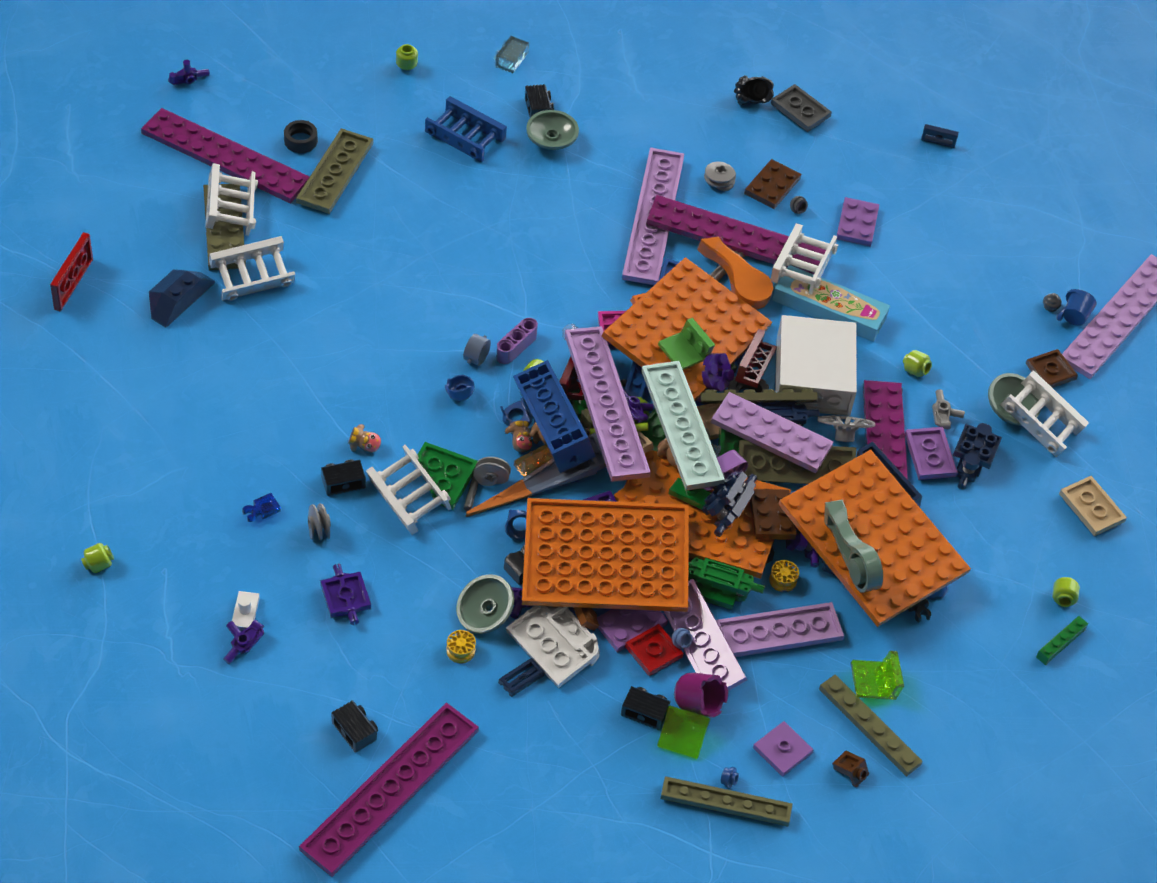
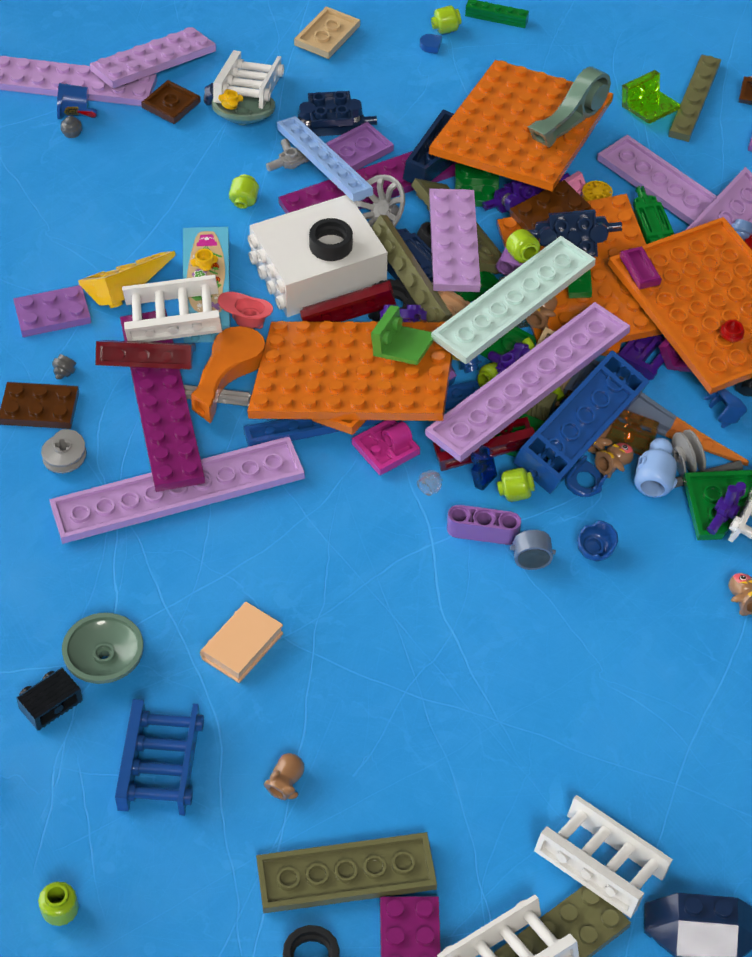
camera: 115 degrees left, 0 degrees up
(412, 172) = (284, 776): none -> medium nougat animal
(430, 459) = (727, 506): none -> dark purple piece
(491, 443) = (656, 469): none -> light blue piece
(516, 195) = (242, 642): none -> light nougat piece
(559, 359) = (484, 469): none -> clear blue plate
(566, 535) = (732, 331): none -> red plate
(664, 515) = (640, 267): none -> magenta tile
(730, 455) = (522, 245): none -> lime head
(774, 229) = (144, 354): none -> dark red fence
(788, 302) = (245, 309): none -> coral piece
(803, 361) = (331, 252): none -> black tyre
(804, 564) = (576, 181): none -> bright pink tile
(844, 296) = (204, 259): none -> yellow plate
(861, 258) = (107, 286): none -> yellow wedge
(910, 402) = (325, 159): none -> light blue plate
(1013, 385) = (230, 99): none -> yellow plate
(1044, 572) = (430, 43): none -> blue tile
(1111, 377) = (152, 57): none -> lavender plate

